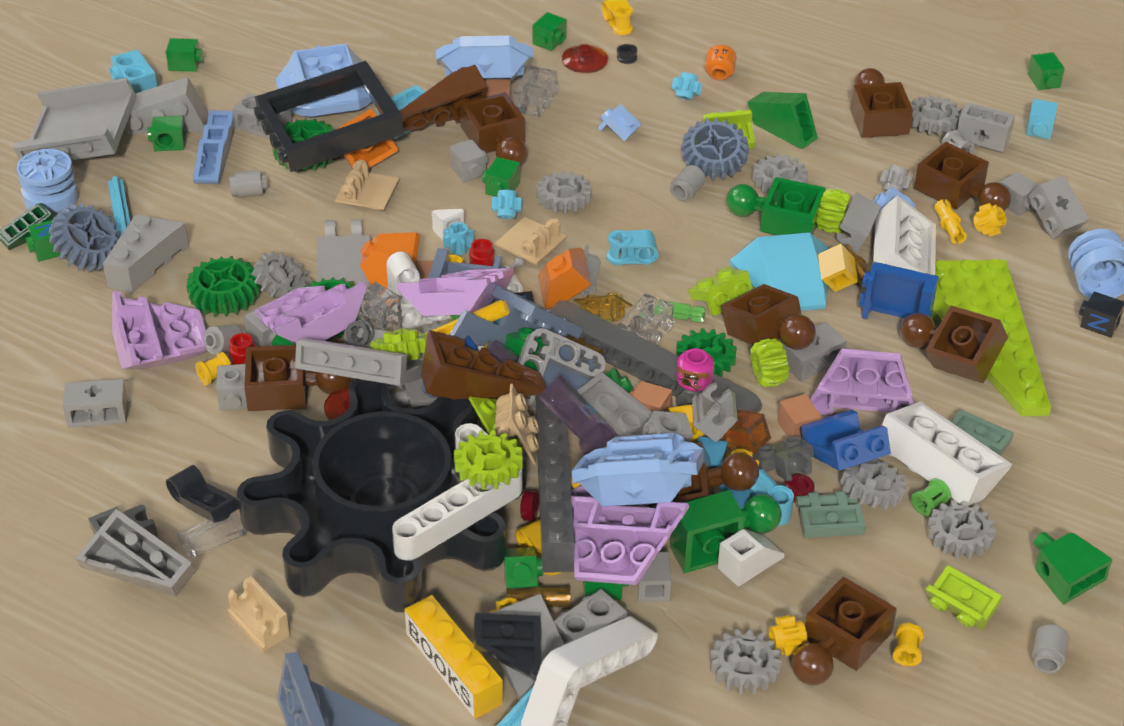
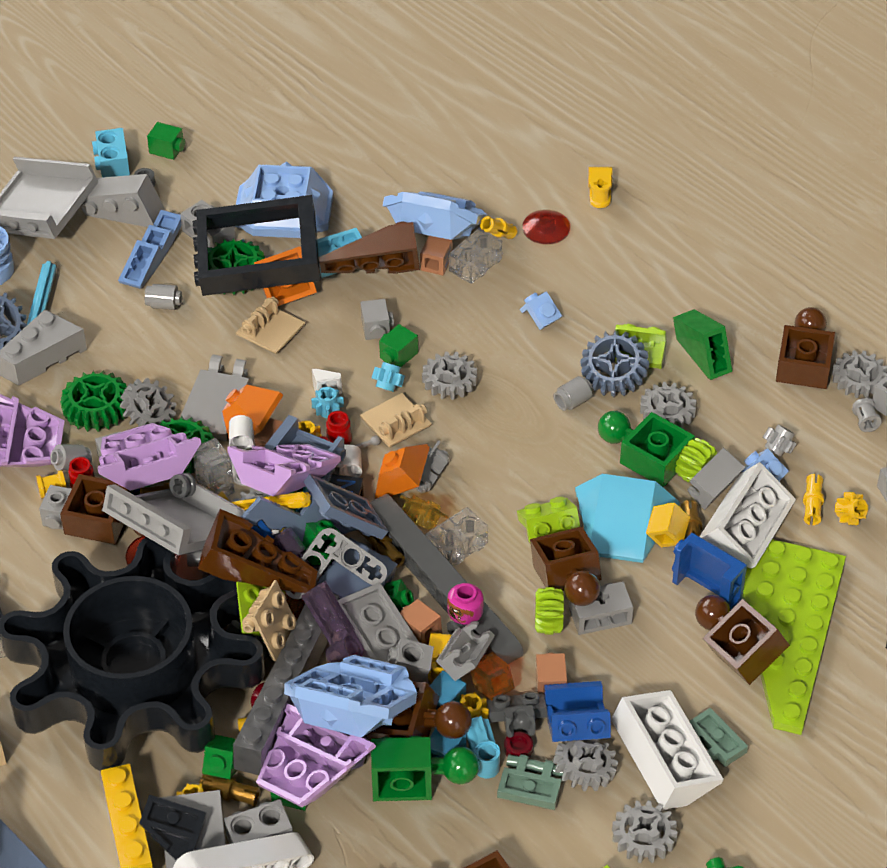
camera: 20 degrees right, 5 degrees up
(167, 133) = (115, 225): green brick -> none
(402, 341) = (203, 509): lime gear -> none
(451, 510) = (181, 688): white beam -> none
(488, 459) = (208, 655): lime gear -> none
(495, 125) = (415, 291): reddish brown brick -> none
(549, 31) = (521, 190): green brick -> none
(549, 59) = (498, 227): none -> yellow pin
(627, 53) = (588, 236): black bush -> none
(633, 246) = (487, 452): medium azure piece -> none
(657, 581) = (339, 800): light grey brick -> none
(684, 312) = (502, 532): bright green axle -> none
(686, 86) = (625, 284): medium azure gear -> none
(720, 62) = (673, 263): orange head -> none
(721, 350) = (499, 582): green gear -> none
(746, 556) = (432, 801): white slope -> none
(864, 383) = (619, 657): lavender wedge -> none
(931, 497) = (634, 790): bright green bush -> none
(957, 176) = (841, 451): reddish brown brick -> none

